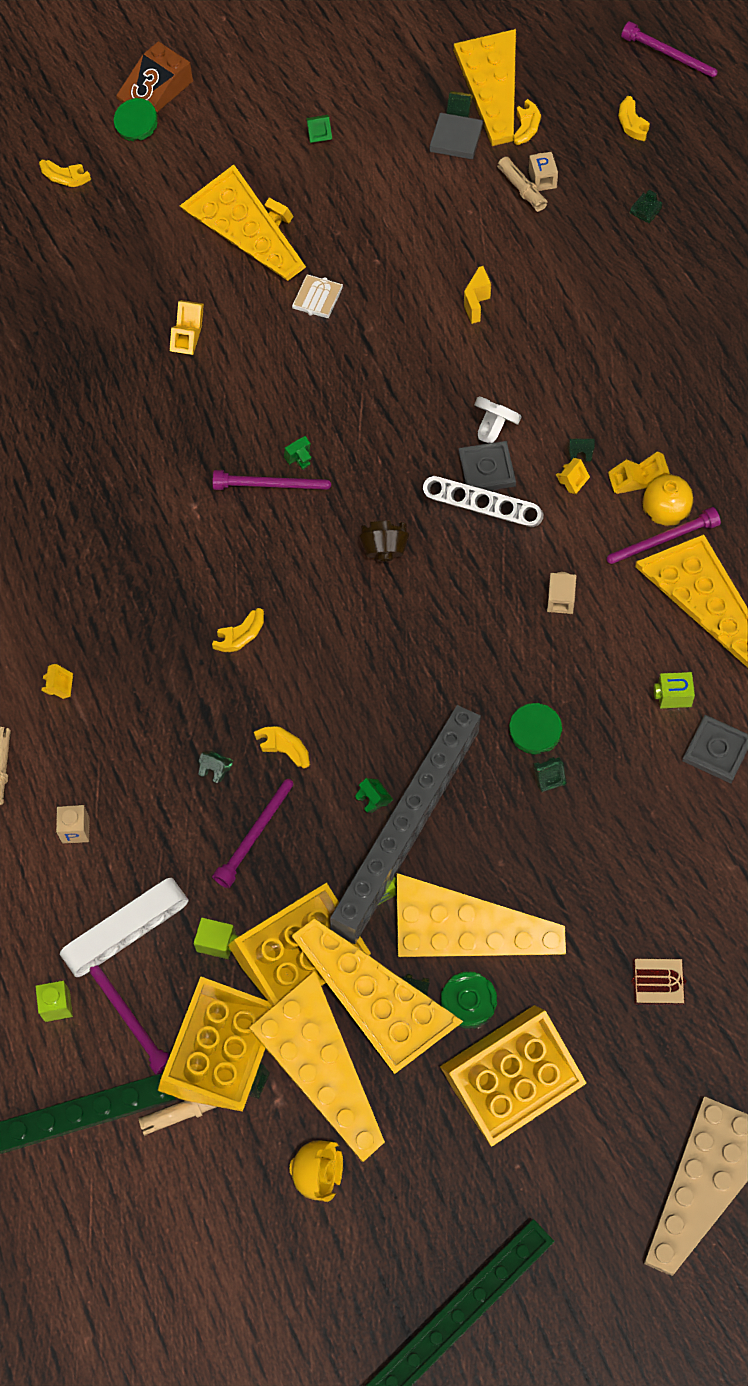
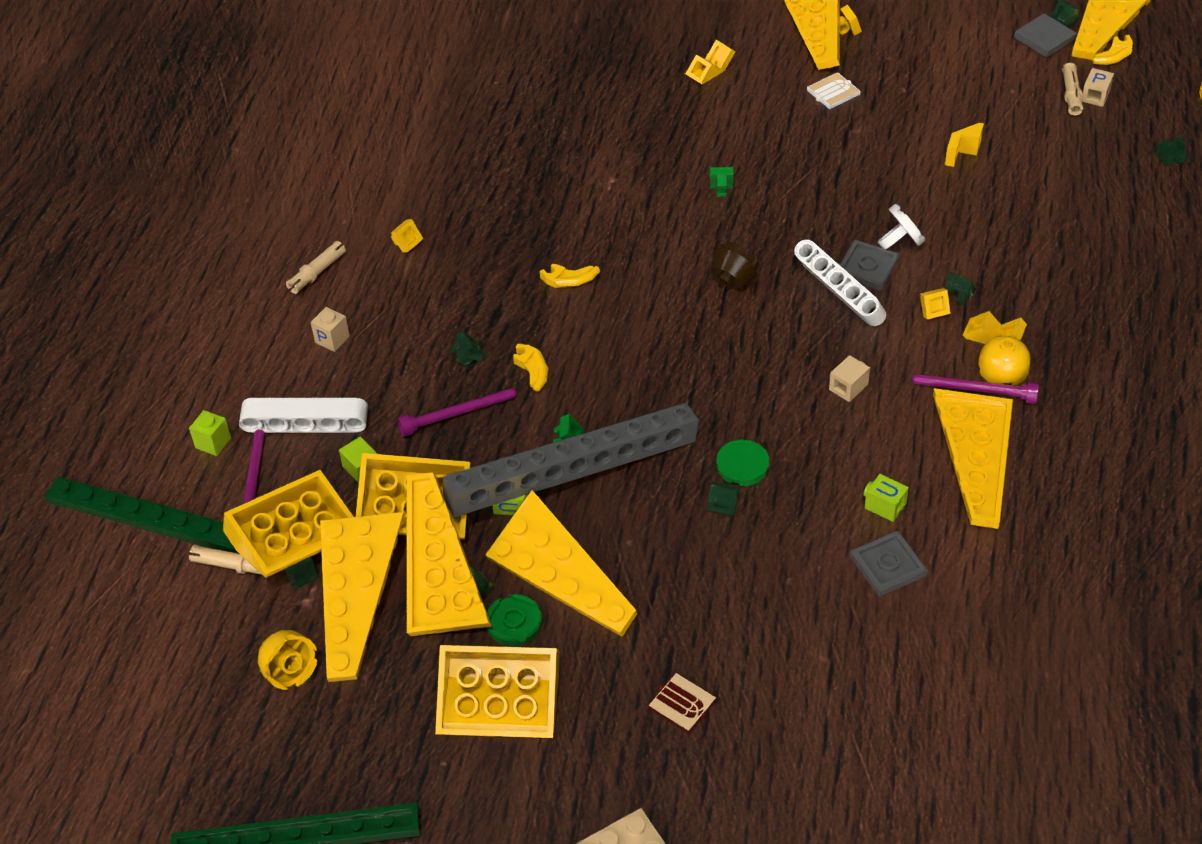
camera: 35 degrees right, 15 degrees down
(223, 480) = (646, 171): magenta piece -> none

